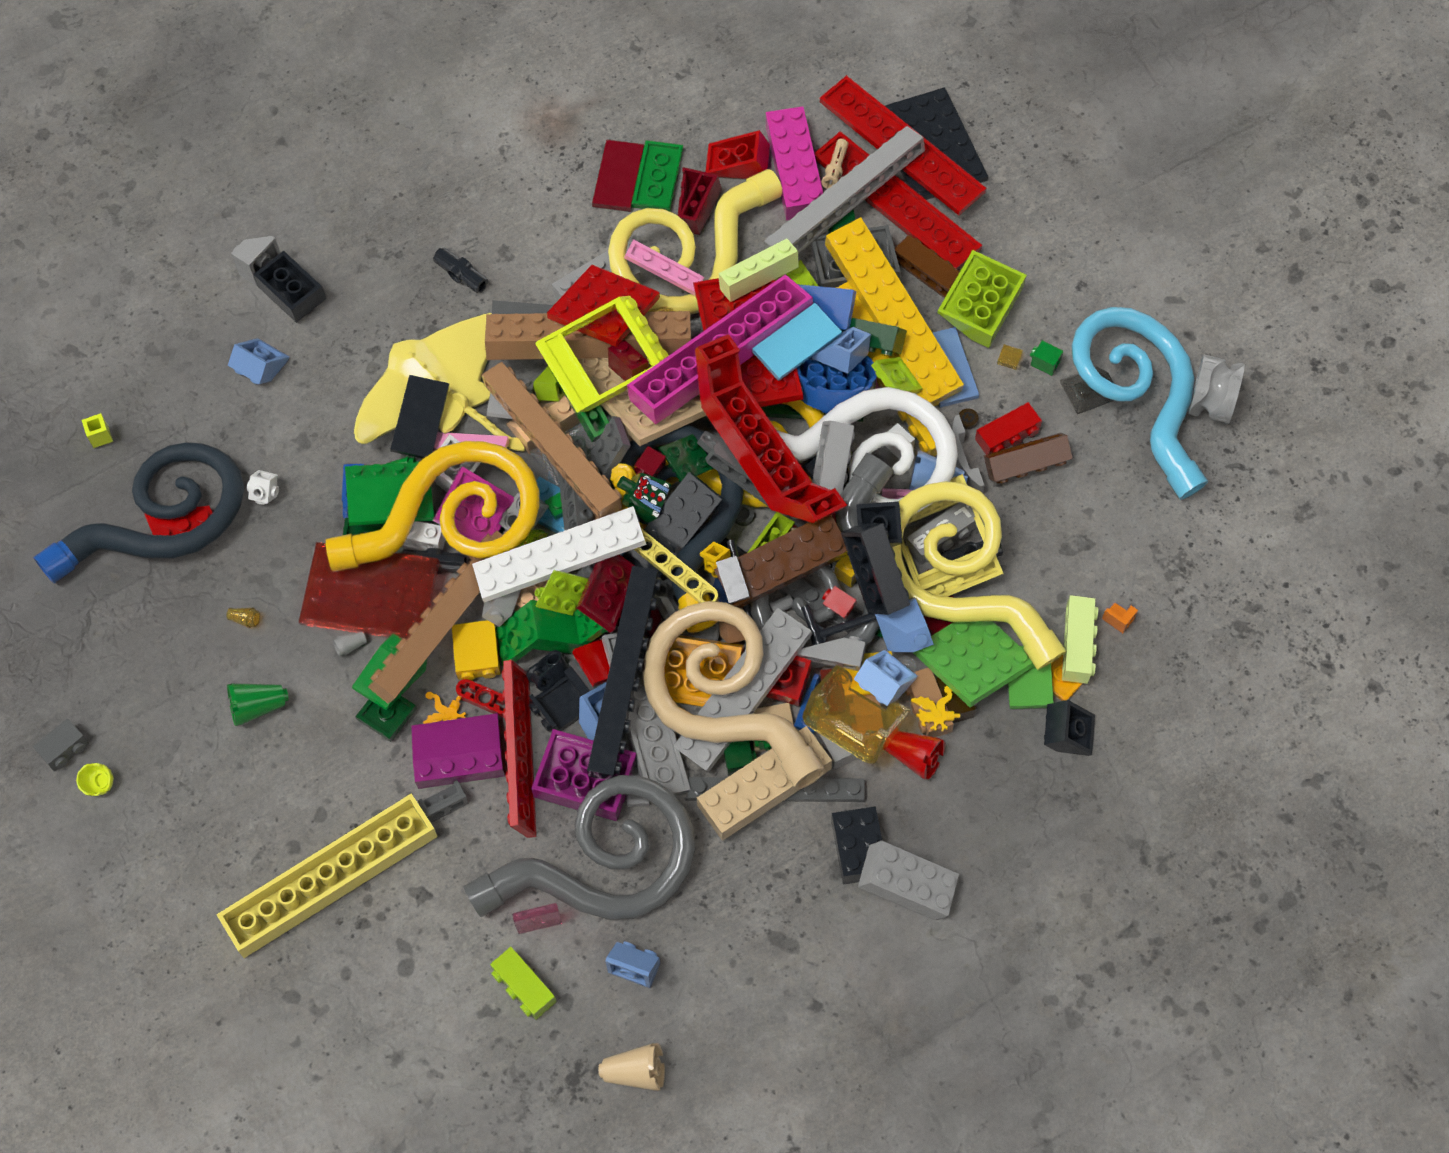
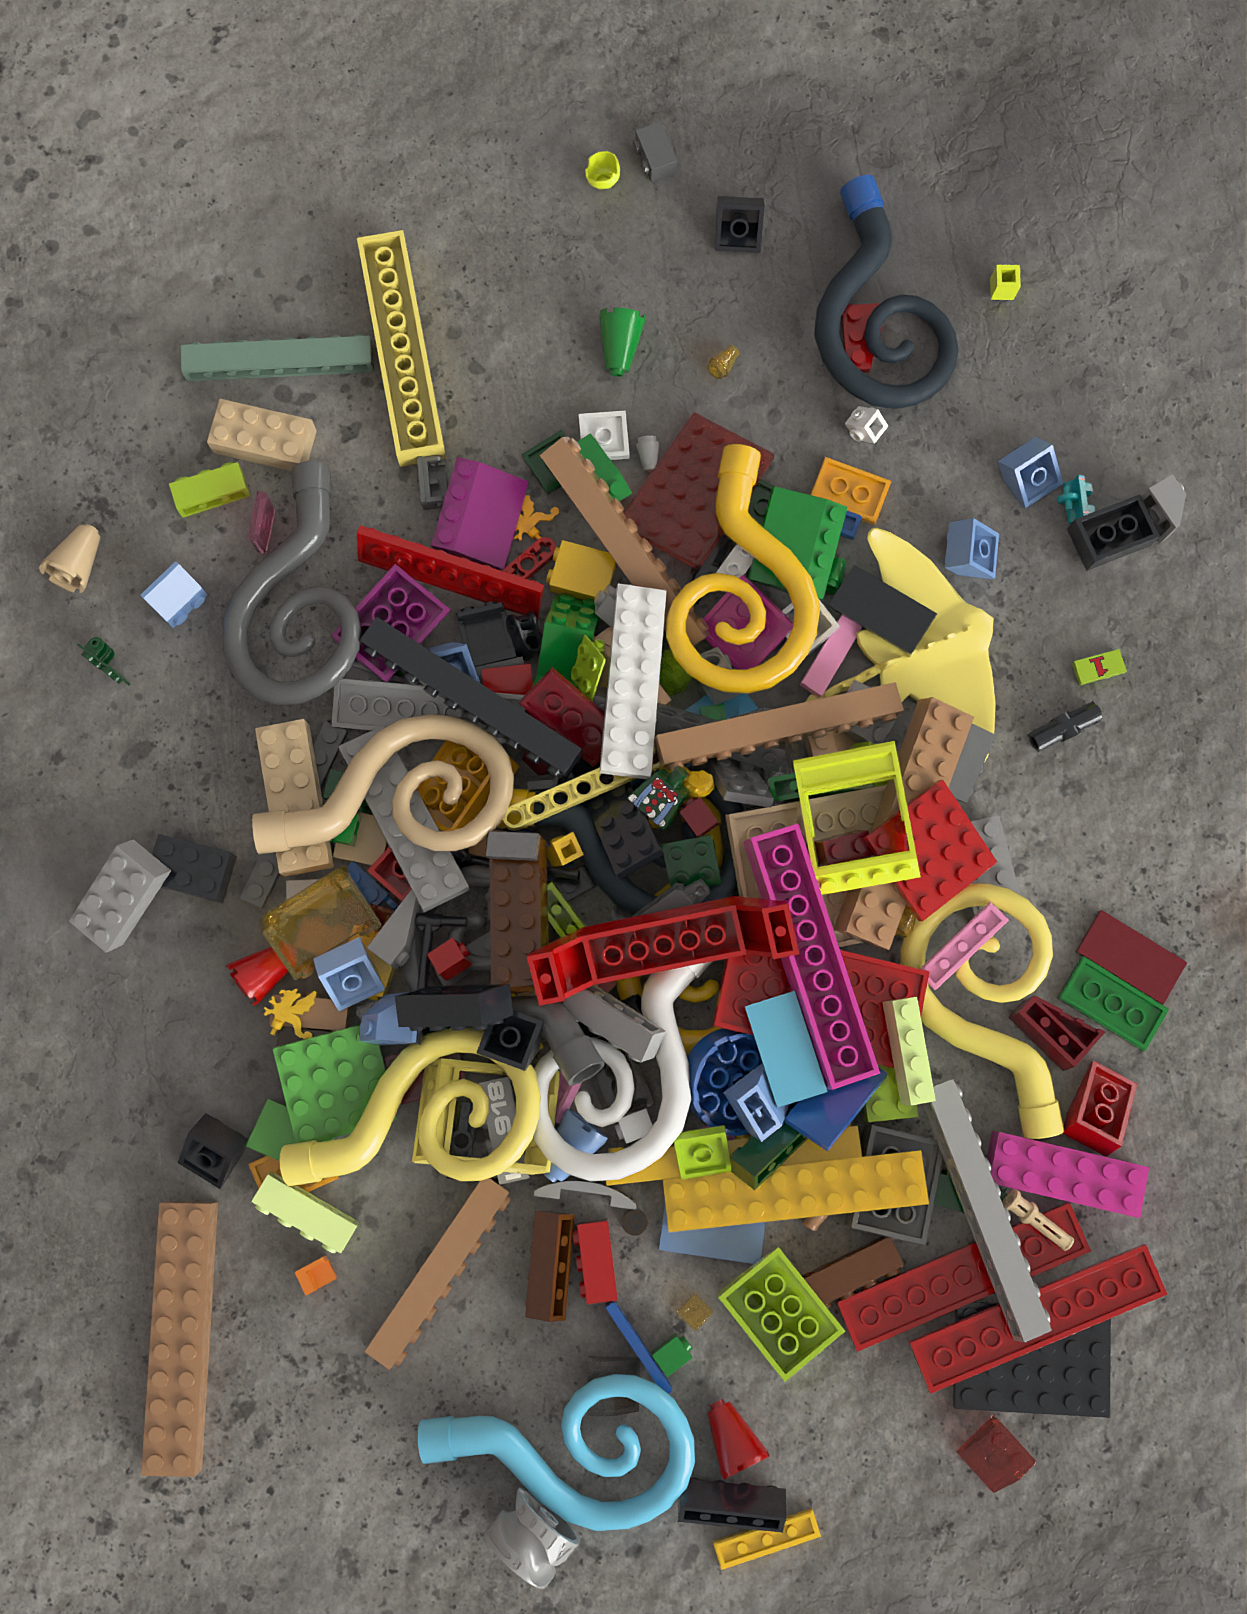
camera: 105 degrees right, 15 degrees up
(108, 651) = (739, 224): none -> black slope
(270, 321) = (1075, 498): none -> teal hips
(322, 484) = (853, 488): none -> light orange tile
(339, 682) = (608, 430): none -> white plate
(341, 379) = (971, 549): none -> medium blue slope
(376, 982) = (277, 358): none -> sand green brick
(402, 265) = (1099, 667): none -> lime tile
(456, 959) = (261, 435): none -> tan brick
(712, 1001) = (100, 655): none -> dark green hinge
(1005, 142) = (996, 1455): none -> clear red slope
(1053, 380) = (638, 1346): none -> blue tile
(1077, 532) = (436, 1273): none -> medium nougat brick
(1083, 295) = (733, 1439): none -> red cone
(1124, 278) = (733, 1505): none -> black brick
(1135, 258) = (756, 1543): none -> yellow tile
(1214, 689) = (180, 1339): none -> medium nougat brick

